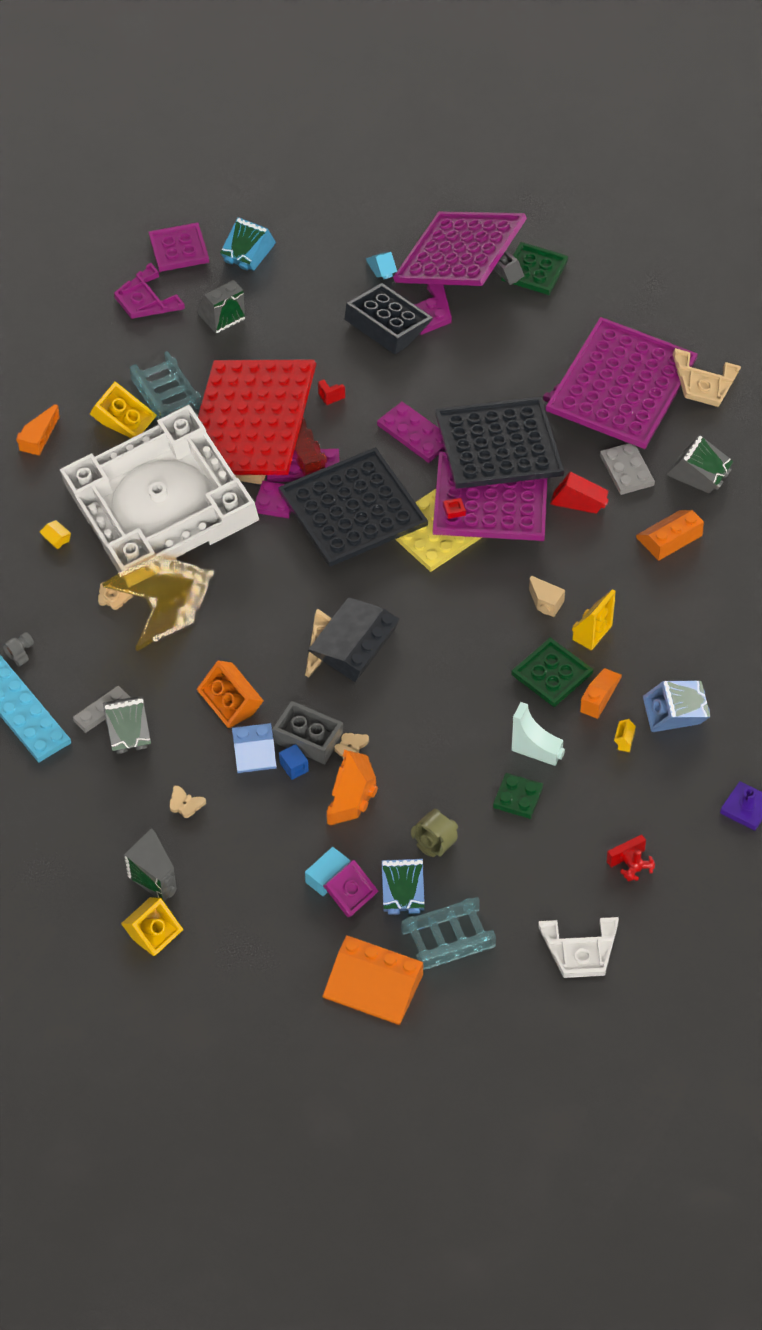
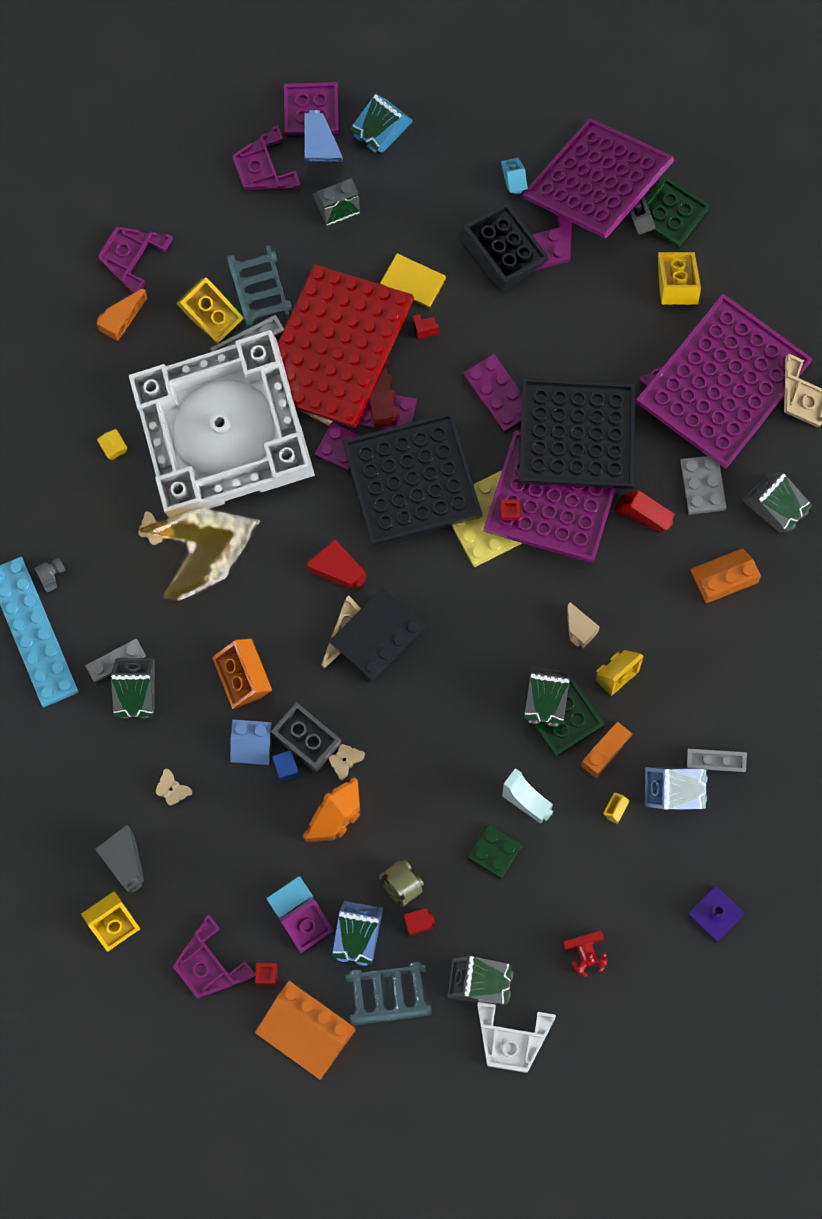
camera: 15 degrees right, 20 degrees up
(30, 380) = (124, 251): none -> magenta wing
(196, 263) = (319, 141): none -> medium blue slope
(256, 950) = (201, 968): none -> magenta wing
(300, 591) = (337, 566): none -> red slope
(322, 939) = (266, 974): none -> red panel
(324, 357) = (414, 279): none -> yellow tile
(460, 866) = (419, 922): none -> red brick
(532, 651) = (547, 696): none -> slope
(534, 900) = (480, 980): none -> slope
(556, 316) = (678, 278): none -> yellow slope
(712, 678) = (716, 760): none -> light grey plate

